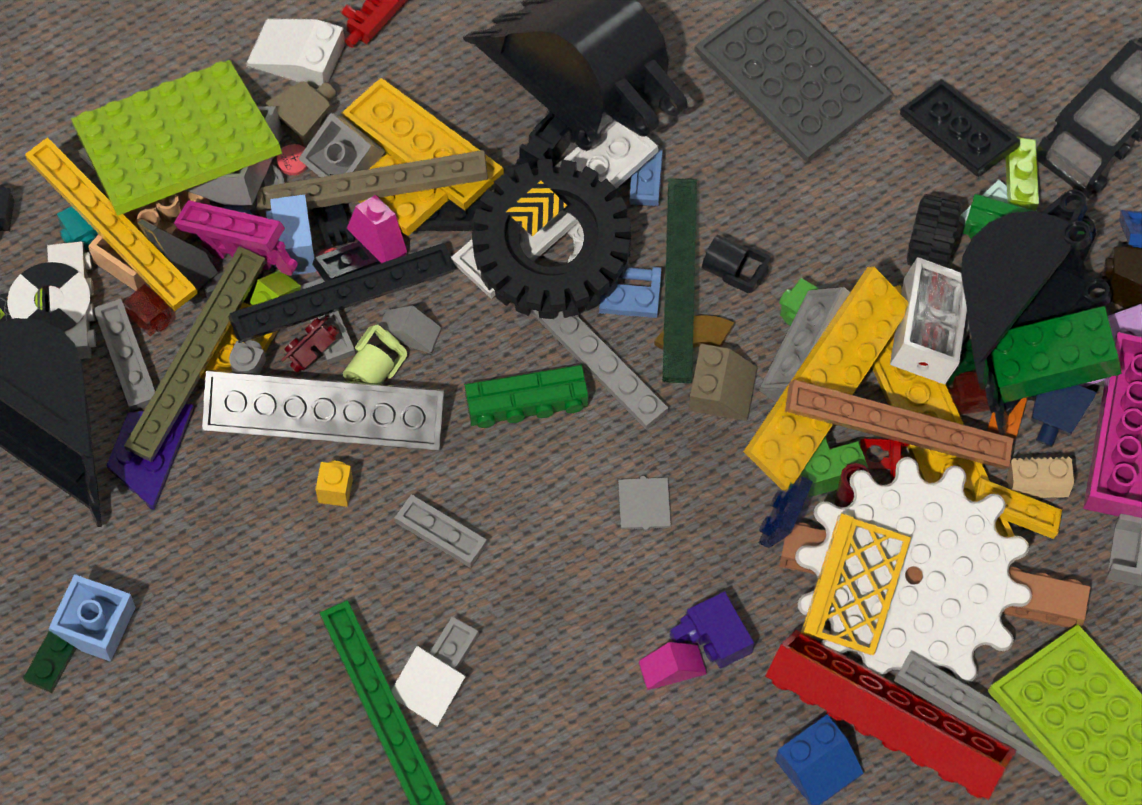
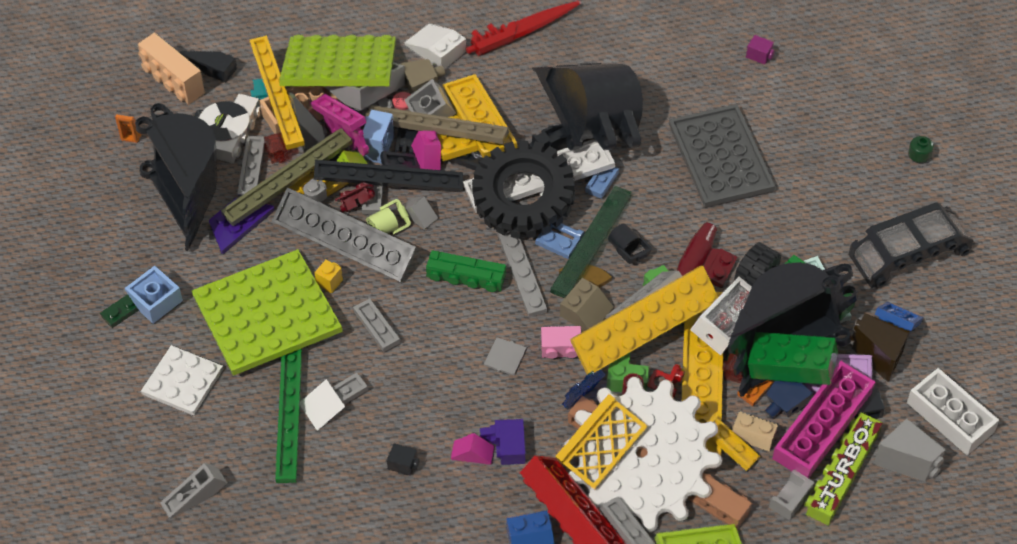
camera: 25 degrees right, 10 degrees down
(202, 731) = (182, 380): none -> white plate
(270, 576) = (266, 312): none -> lime plate
(536, 208) = (520, 167): sticker -> none
(585, 720) = (402, 459): none -> black brick
(715, 452) = (557, 343): none -> bright pink brick
(848, 245) = (700, 253): none -> dark red plate
(898, 424) = (675, 362): nougat plate -> none
(960, 128) = (808, 219): black tile -> none
(1022, 175) = (835, 253): lime plate -> none

